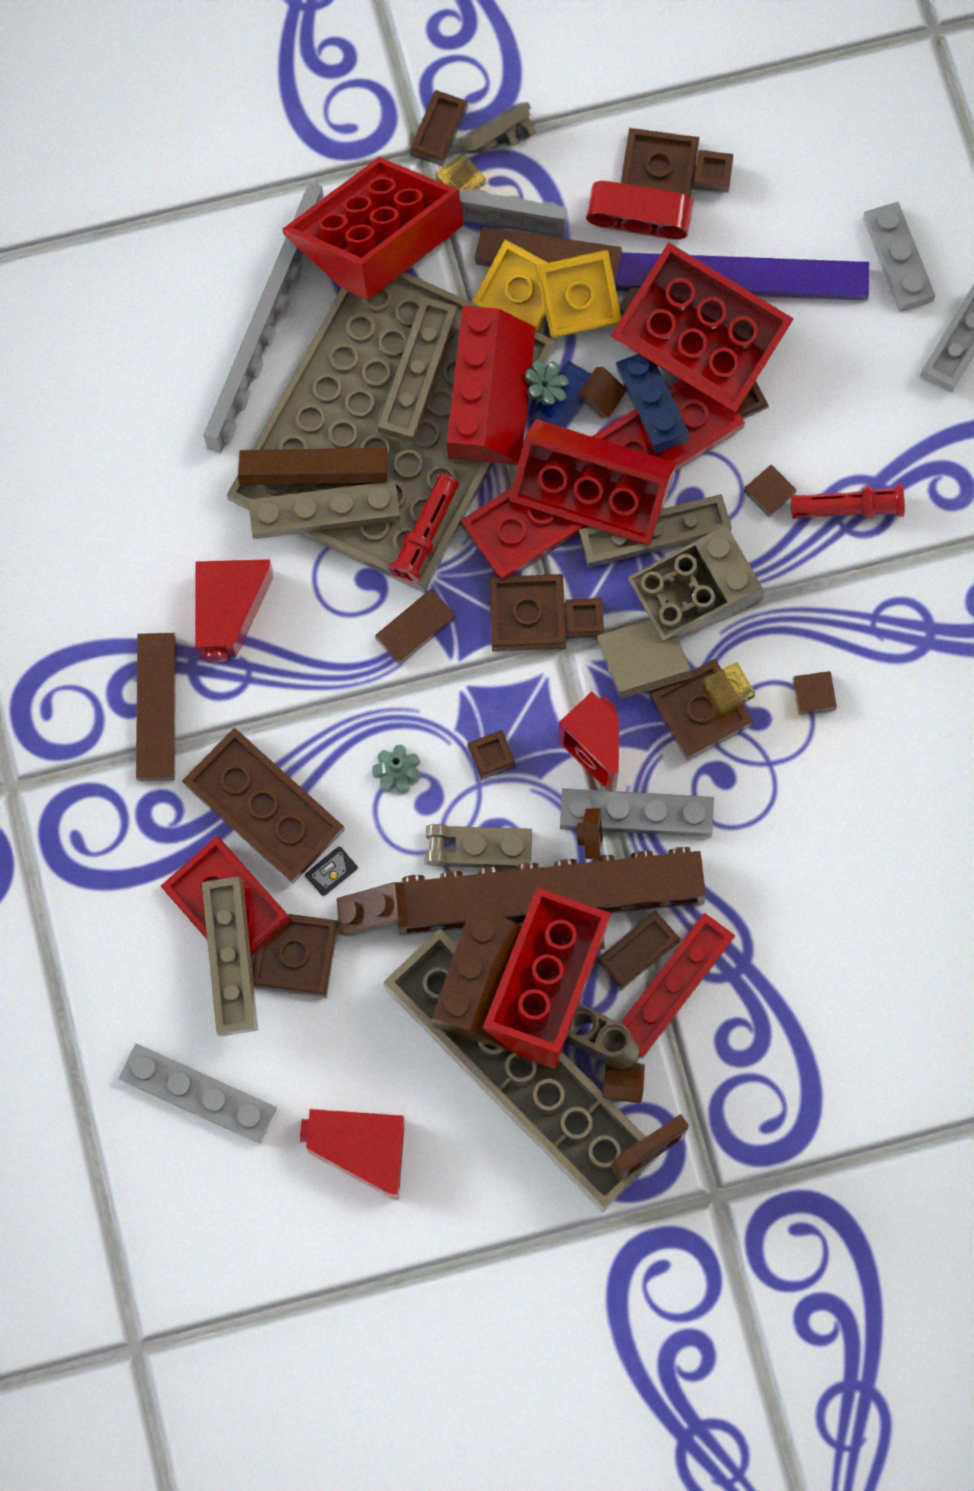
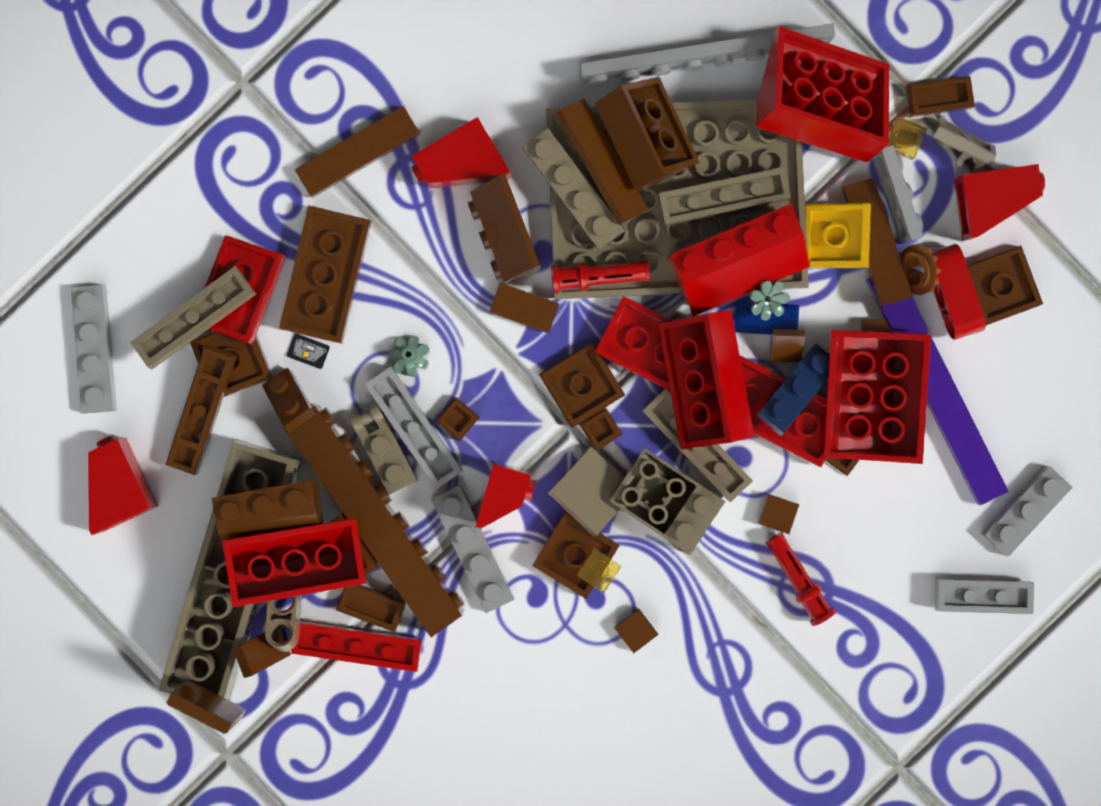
camera: 55 degrees right, 15 degrees up
(310, 409) = (646, 132): none -> reddish brown slope
(325, 596) = (503, 230): none -> reddish brown slope
(329, 1009) = (201, 410): none -> reddish brown plate
(475, 801) = (413, 427): none -> light grey plate
(566, 127) = (994, 196): none -> red slope
(579, 293) = (855, 285): yellow tile -> none
(586, 218) = (920, 282): none -> dark orange gear
(591, 833) = (432, 527): reddish brown plate -> none
(713, 171) = (1019, 330): reddish brown plate -> none

